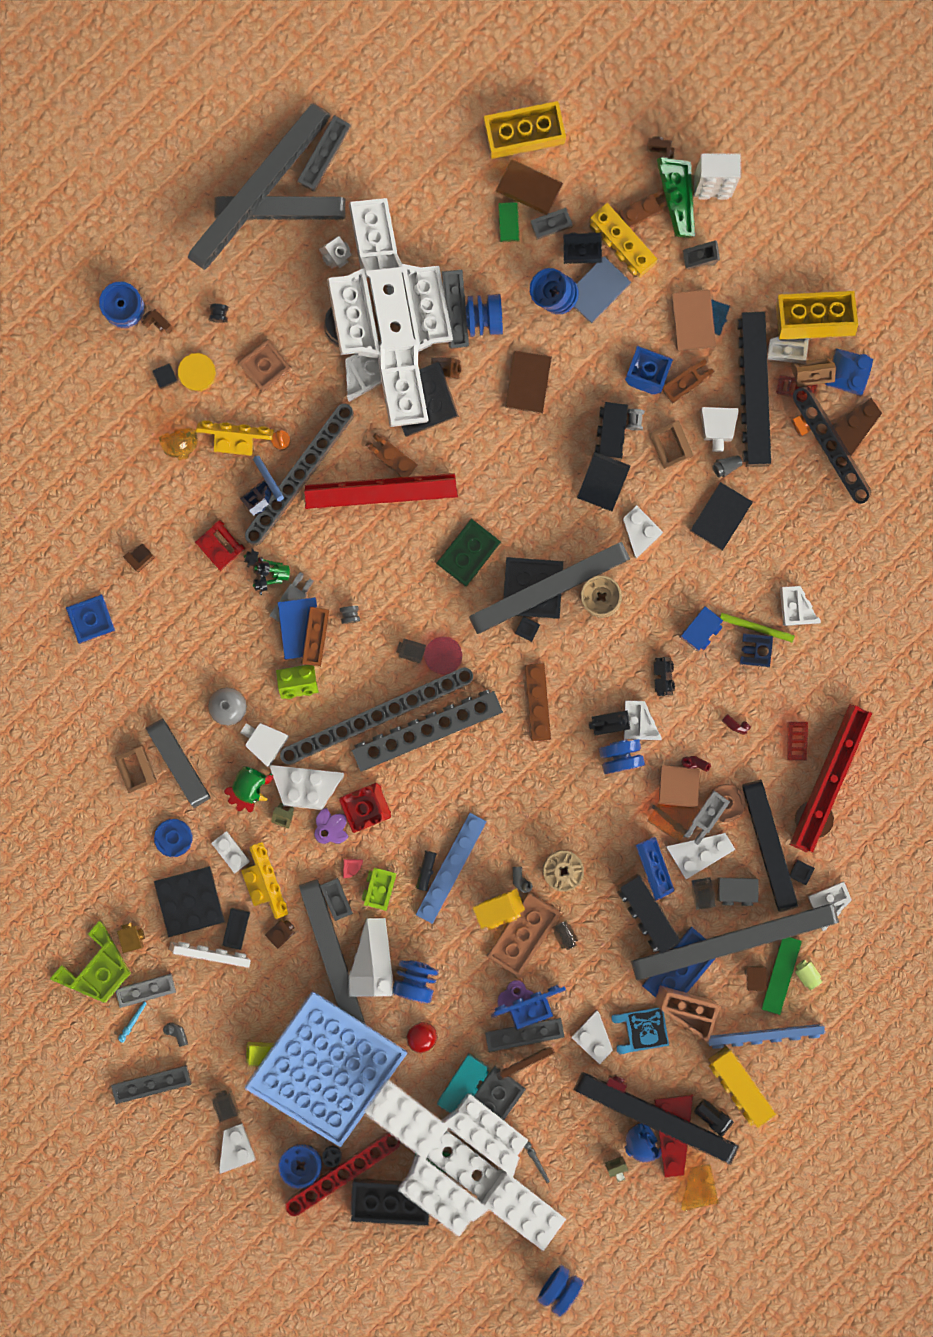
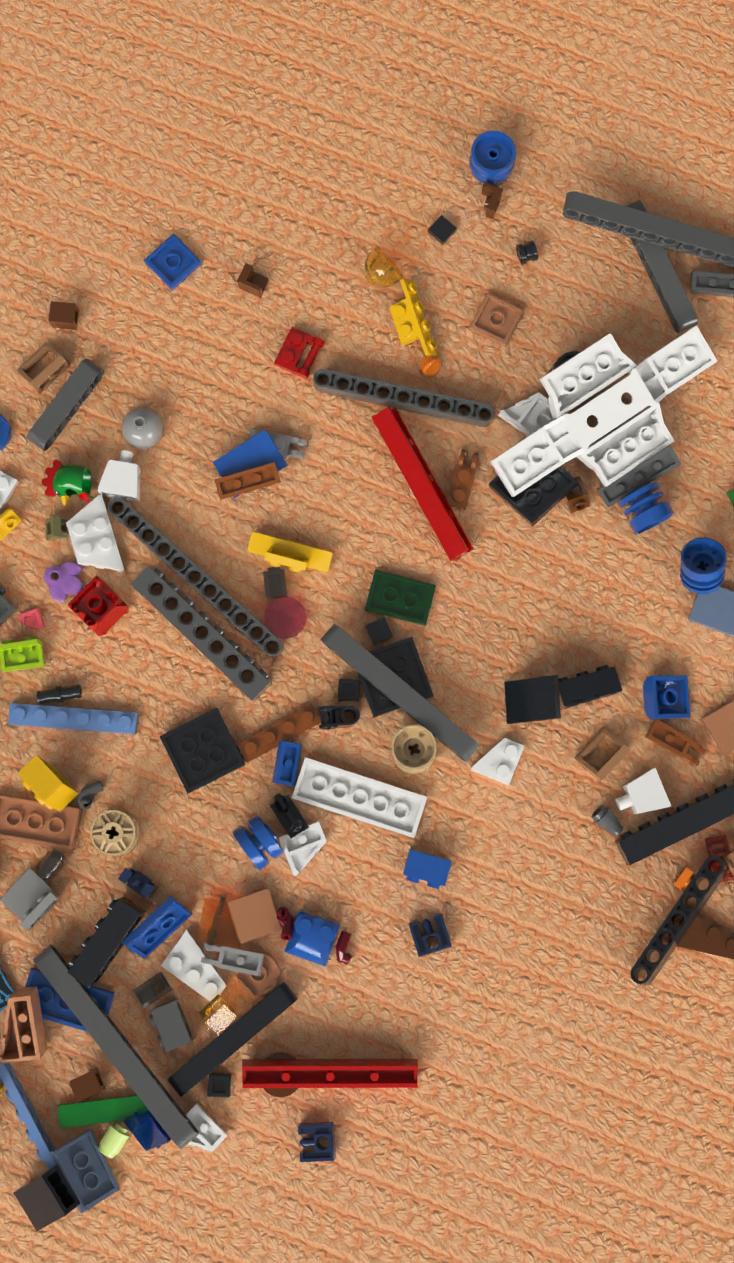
camera: 65 degrees right, 5 degrees down
(98, 732) = (63, 315): none -> reddish brown panel
(196, 372) = (460, 258): yellow tile -> none
(257, 498) = (360, 366): dark blue wing -> none
(262, 568) = (291, 398): plant -> none
(268, 478) = (385, 368): medium blue bar -> none
(297, 681) = (196, 484): lime bracket -> none
(335, 253) = (639, 337): white brick -> none
(349, 614) = (285, 506): dark grey wheel -> none
(391, 628) = (289, 553): none -> yellow bracket
(489, 582) = (379, 631): none -> black tile
(525, 771) = (202, 750): none -> black plate
(528, 382) = (599, 582): reddish brown tile -> none
(545, 650) = (333, 717): none -> black piece
(566, 706) = (286, 763): none -> blue plate
(585, 964) = (30, 899): none -> light grey bracket
(611, 869) = (138, 882): none -> dark blue brick
(620, 659) = (359, 797): none -> white plate
(635, 419) = (611, 705): light grey bush -> none
(665, 685) = (353, 856): black hinge -> none
(717, 746) = (312, 938): none -> blue slope
(721, 516) = (552, 838): black tile -> none
(746, 849) = (217, 1015): none -> clear yellow brick
(757, 627) = (454, 926): lime bar -> none
(790, 725) = (365, 1024): clear red slope -> none
(796, 608) = (493, 957): white wing -> none
(812, 944) = (147, 1130): none -> clear blue piece
(822, 1007) = (85, 1170): none -> sand blue tile
(831, 1045) = (47, 1198): none -> black brick
(871, 806) = (321, 1153): none -> dark blue brick

